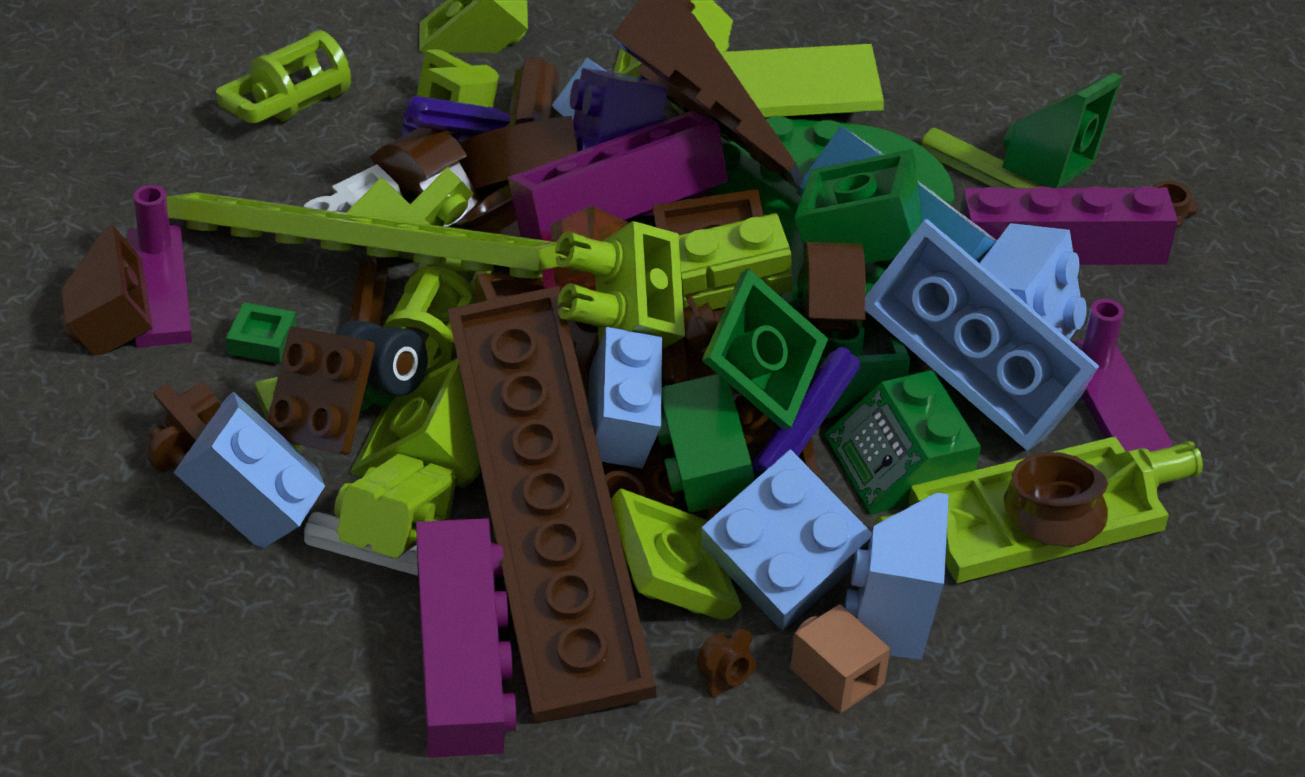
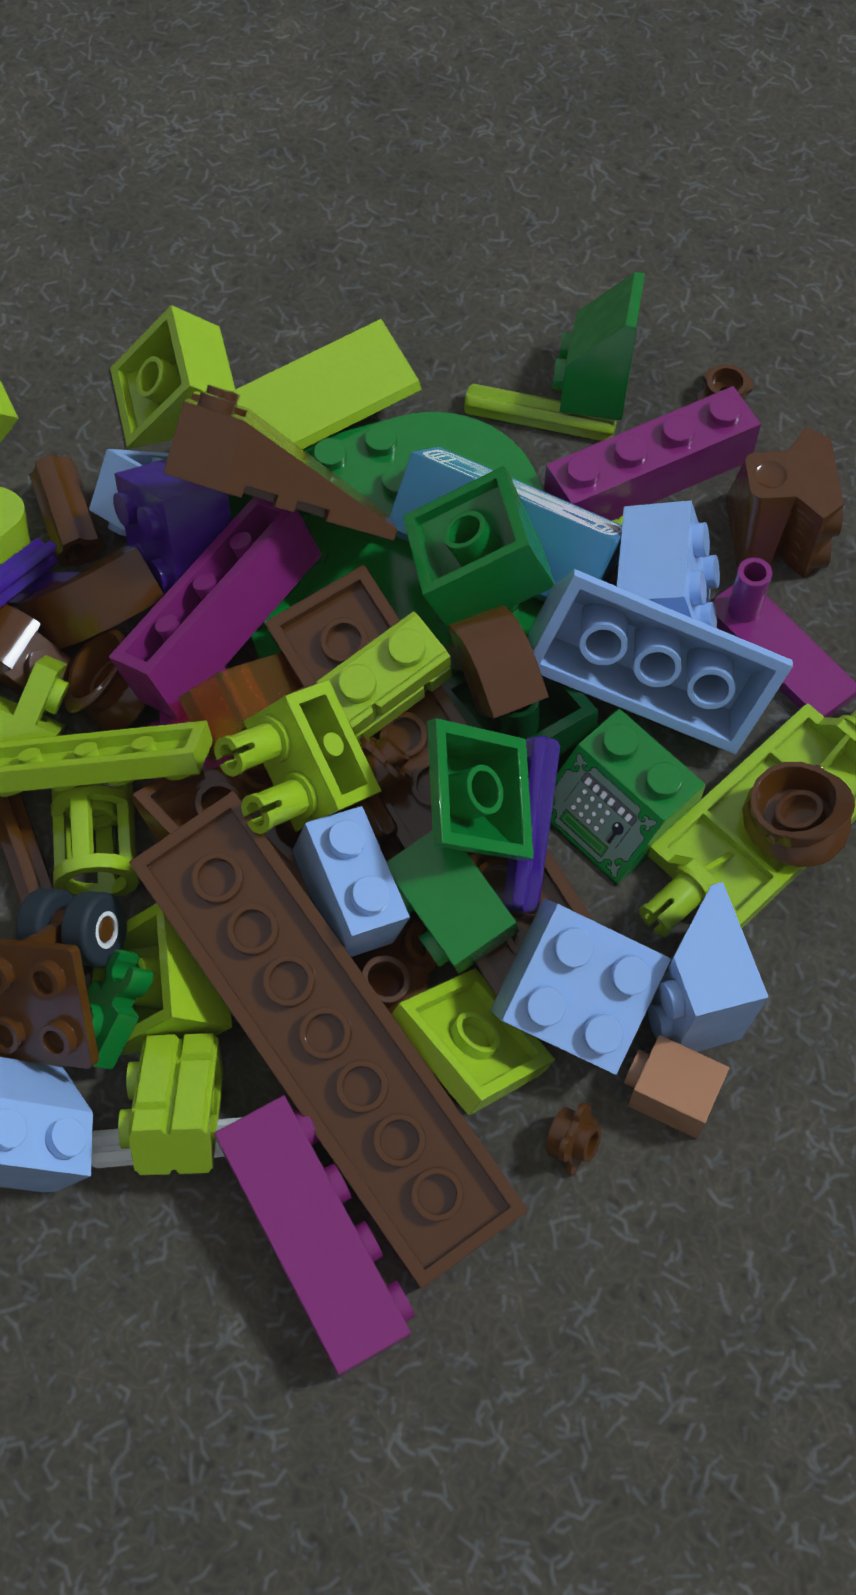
camera: 20 degrees left, 20 degrees up
(379, 427) = (113, 1002): none -> green plate
(1169, 286) = (787, 505): none -> reddish brown piece

